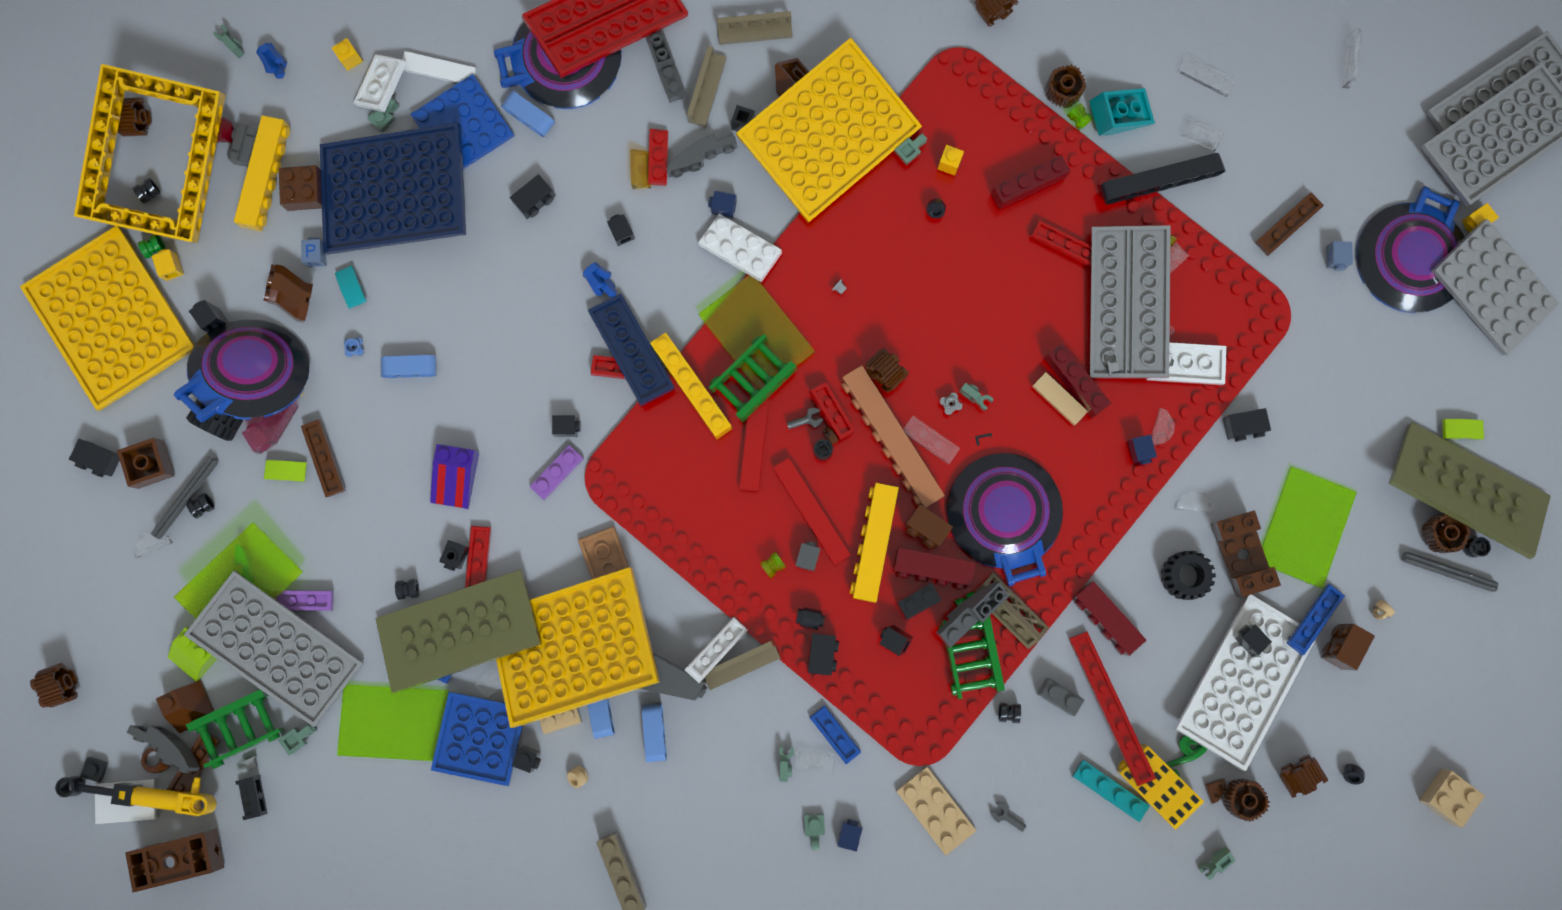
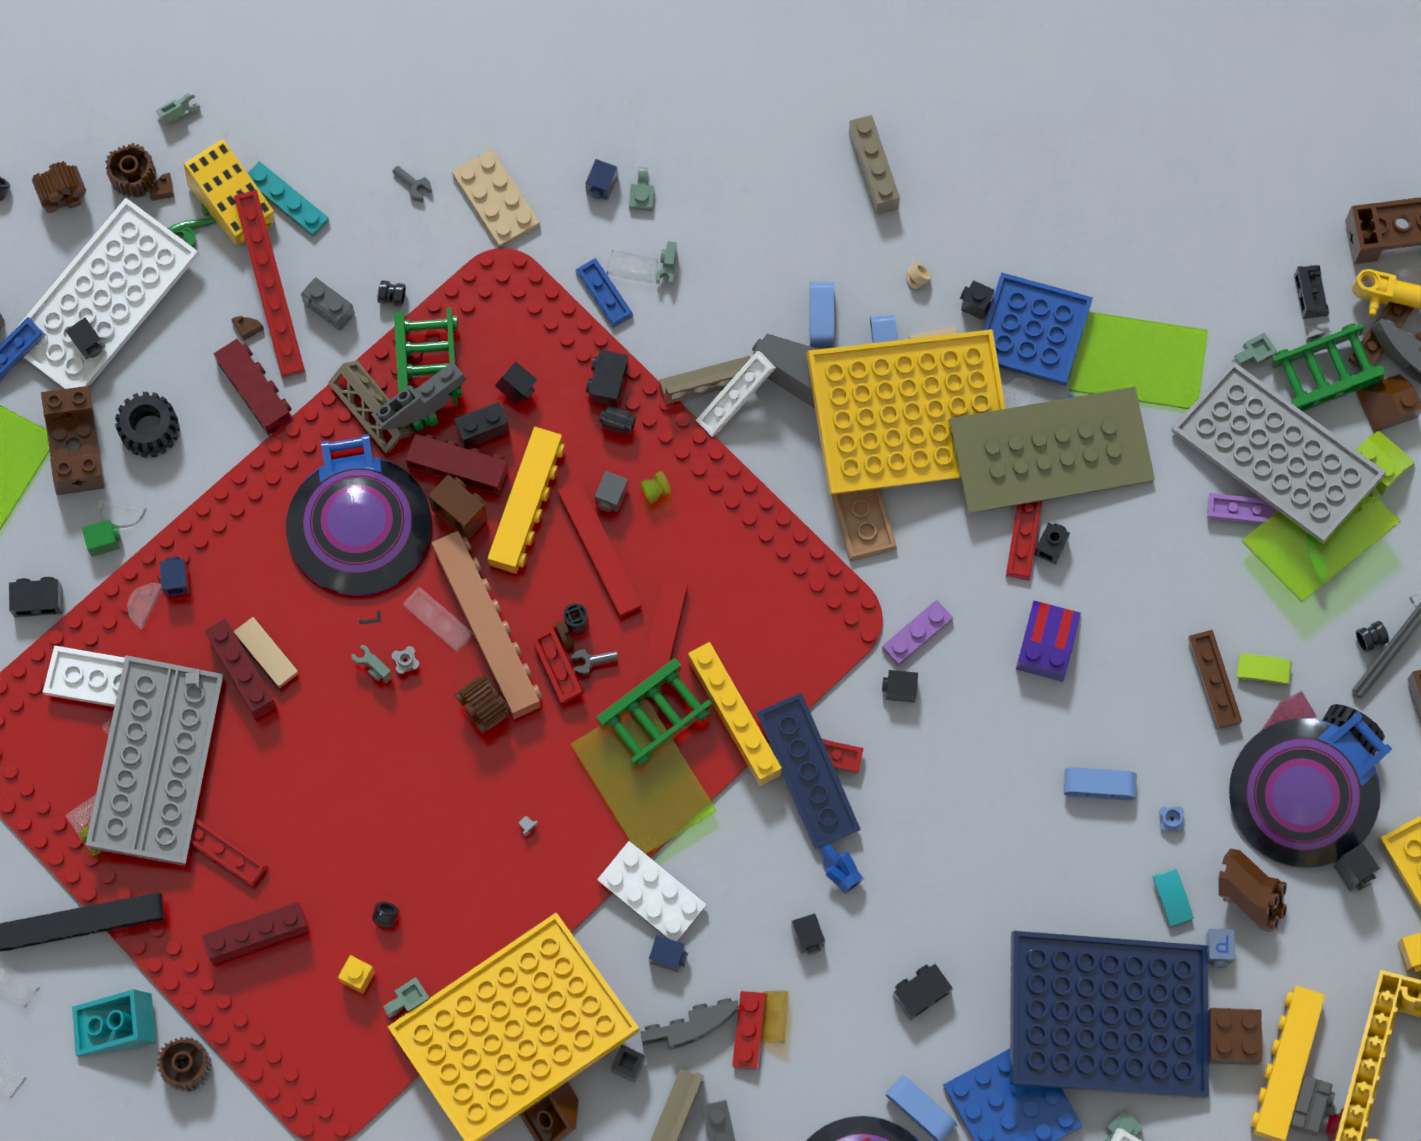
camera: 175 degrees left, 10 degrees down
(407, 589) = (1113, 508): black wheel -> none
(1080, 116) = (171, 1022): clear neon green wheel -> none
(1123, 672) = (247, 326): none -> reddish brown tile
(1205, 478) = (101, 537): none -> green brick

